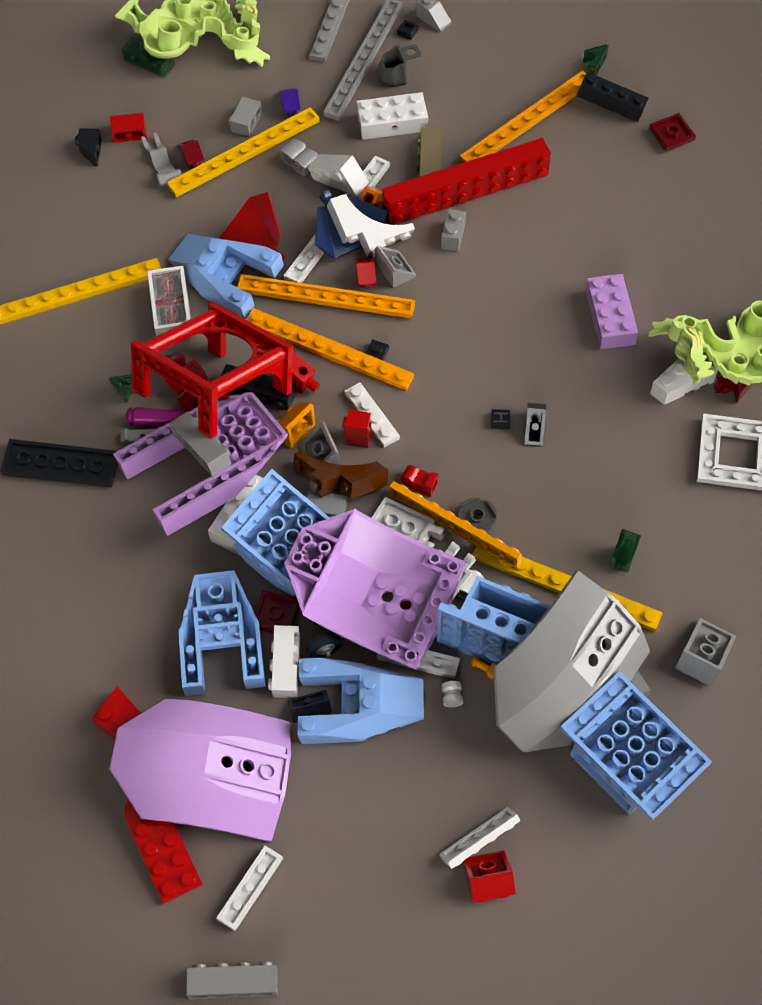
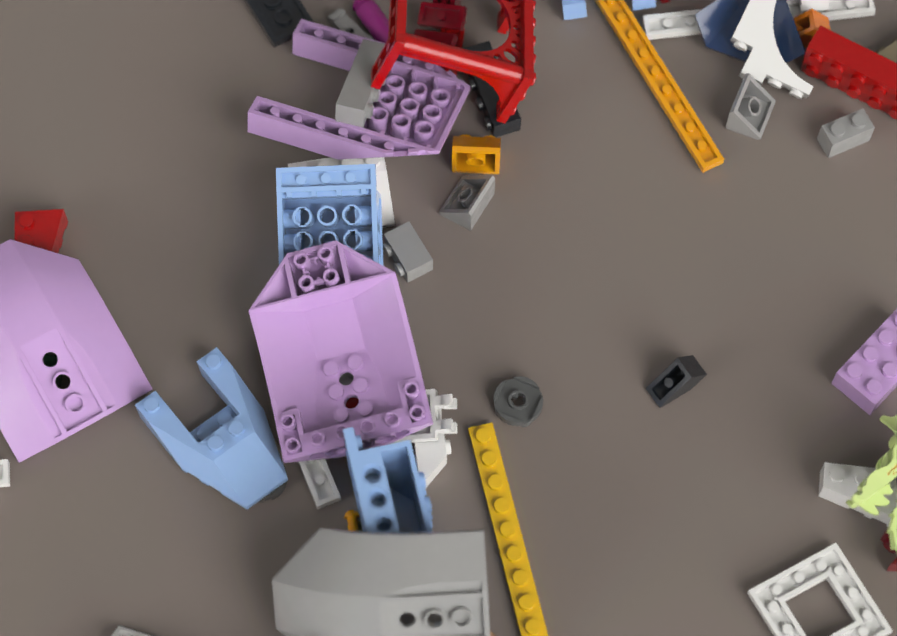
camera: 50 degrees right, 5 degrees up
(216, 619) = (199, 245): light blue wedge -> none
(275, 610) = (247, 286): dark red plate -> none
(285, 662) = (218, 328): white wedge -> none
(303, 375) = (536, 115): red torso -> none
(309, 705) = (183, 395): black slope -> none
(323, 645) = (248, 358): black wheel -> none
(332, 350) = (596, 124): light orange plate -> none
(349, 479) = (450, 248): reddish brown arch -> none
(357, 428) = (518, 214): red brick -> none
(365, 271) = (717, 86): red slope -> none
(377, 349) = (633, 168): black plate -> none
(380, 424) = (553, 217): white plate -> none
(408, 522) = (448, 340): white tile -> none
(420, 480) = (514, 317): red leg -> none
(452, 694) = (296, 517): white wheel -> none
(456, 525) = (487, 395): light orange plate -> none
(500, 419) = (654, 343): black tile -> none
(625, 550) = (591, 574): clear green slope -> none

